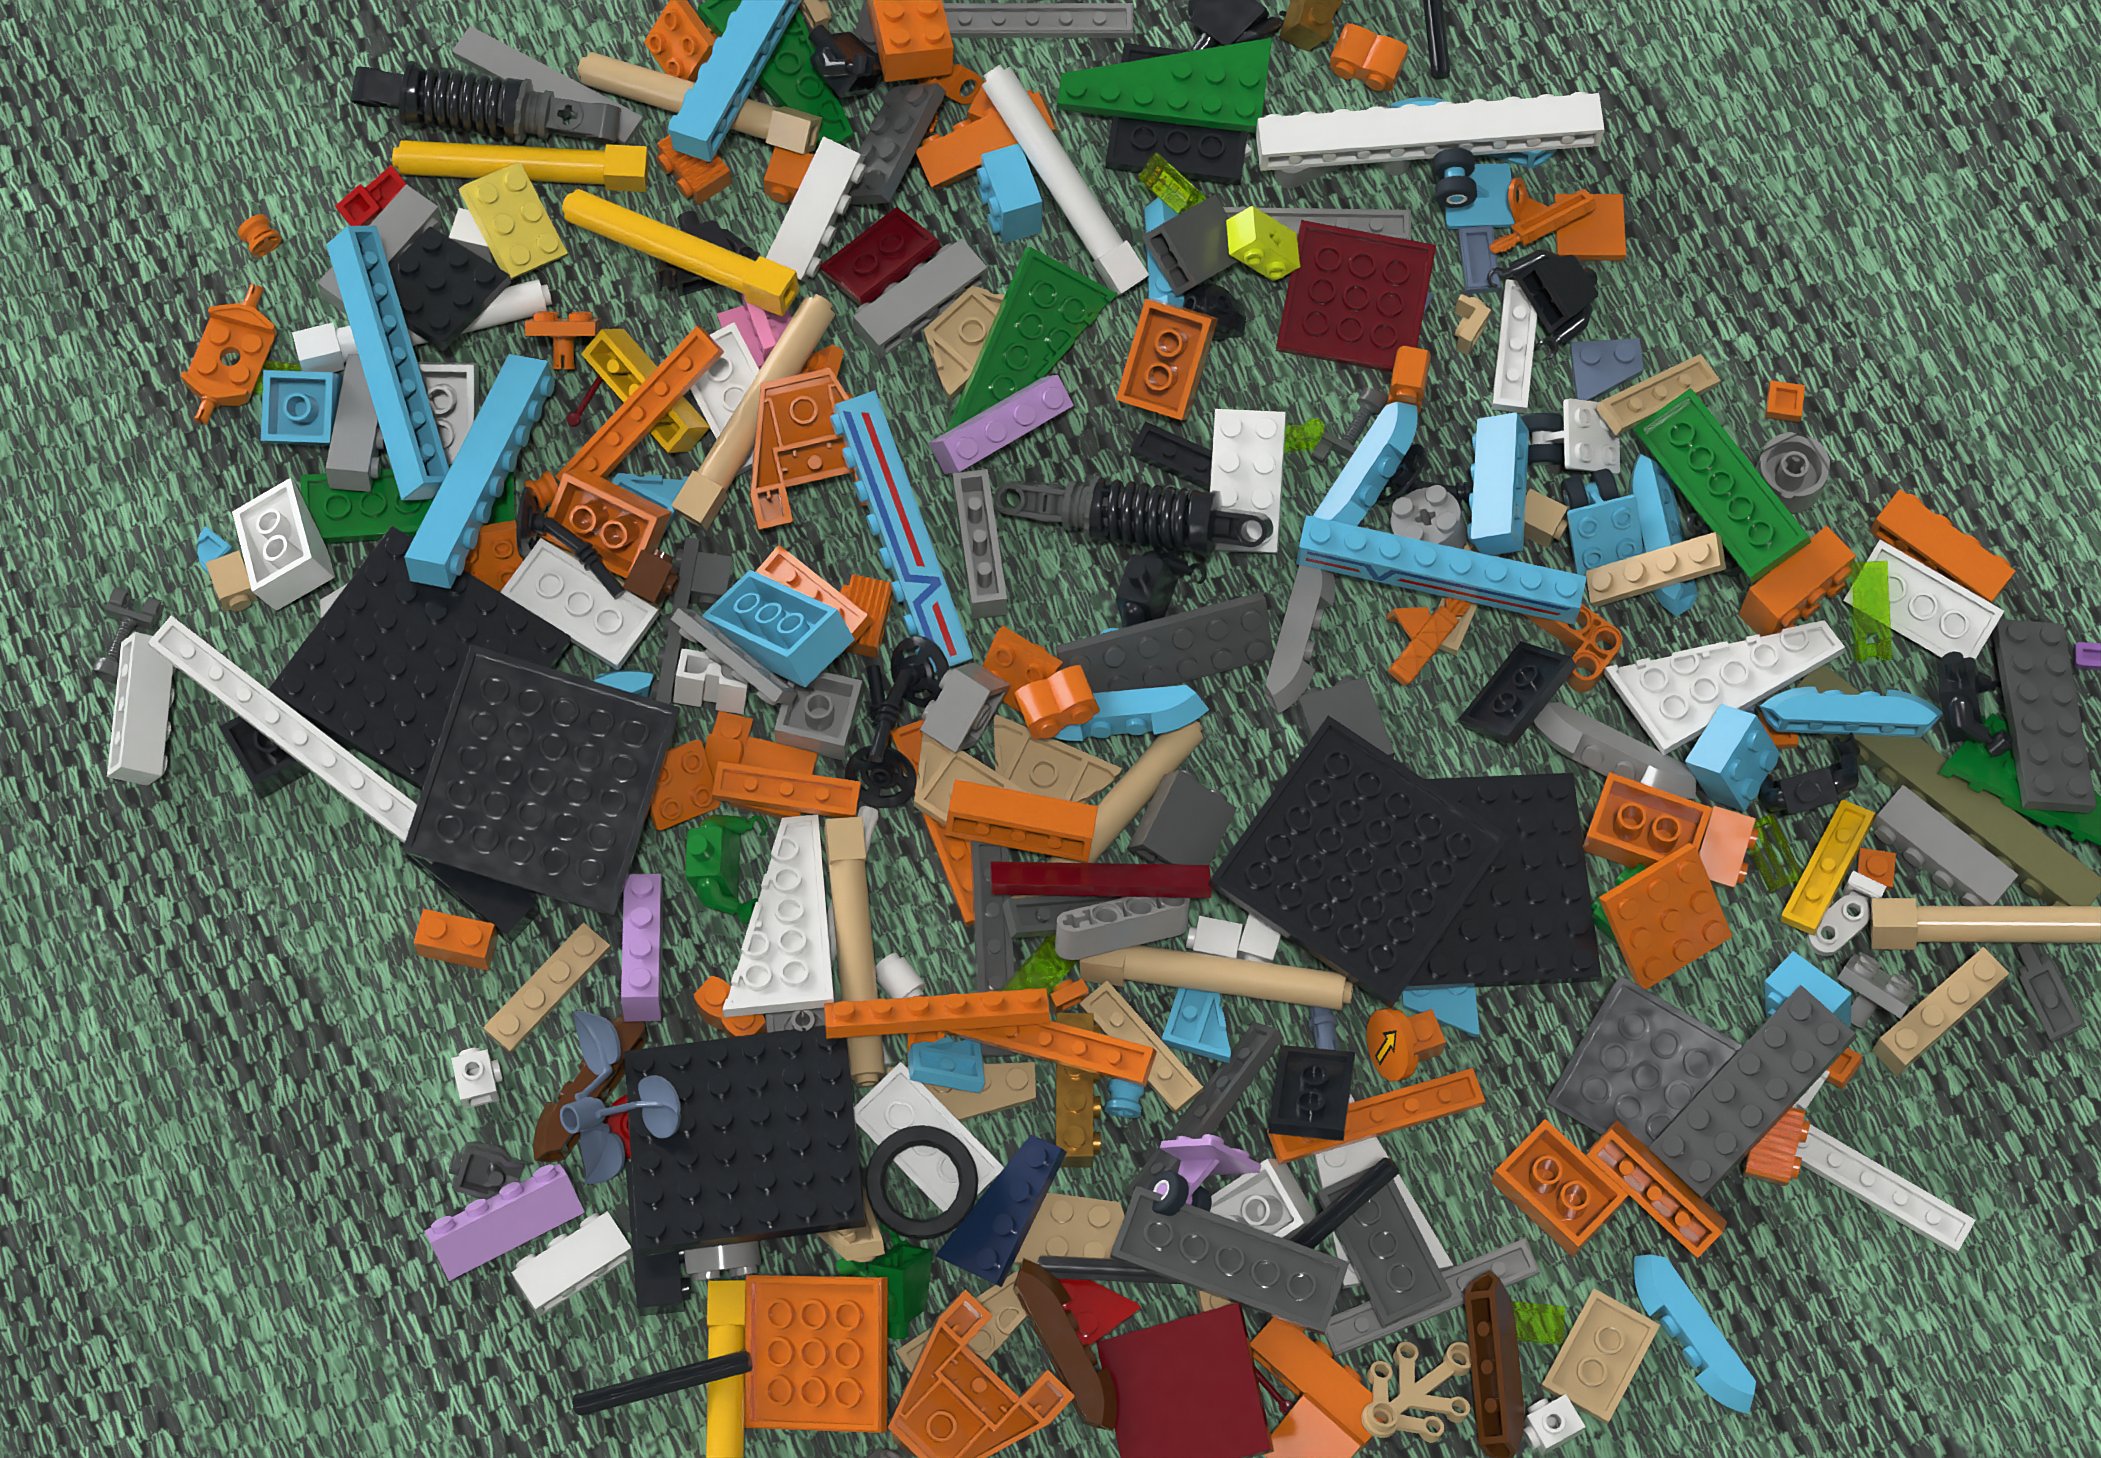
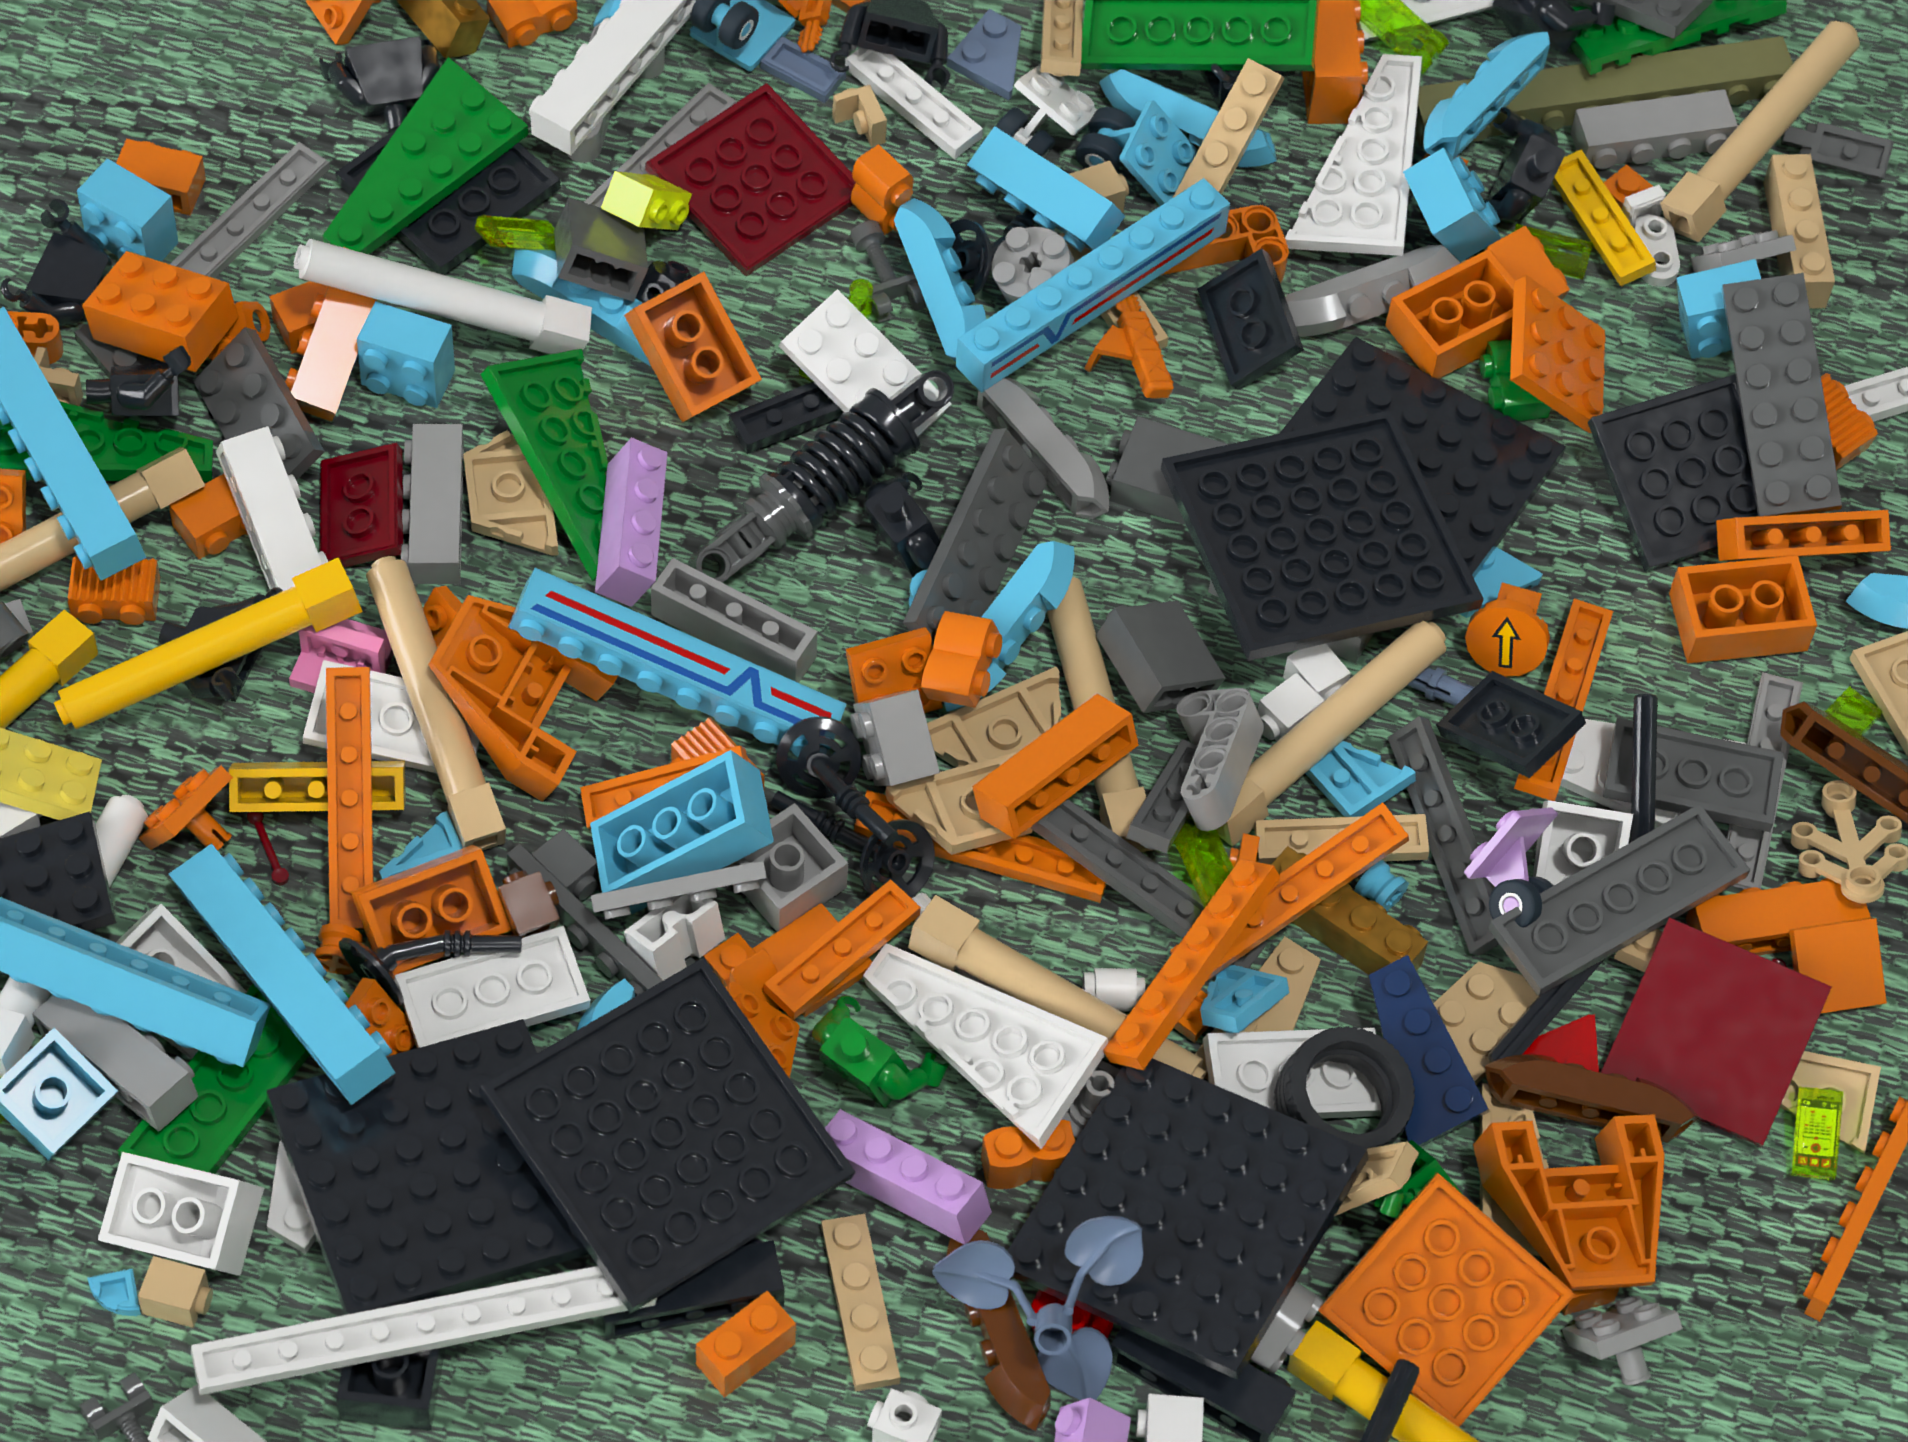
camera: 55 degrees left, 10 degrees down
(1100, 879) = (1165, 746): dark red tile -> none

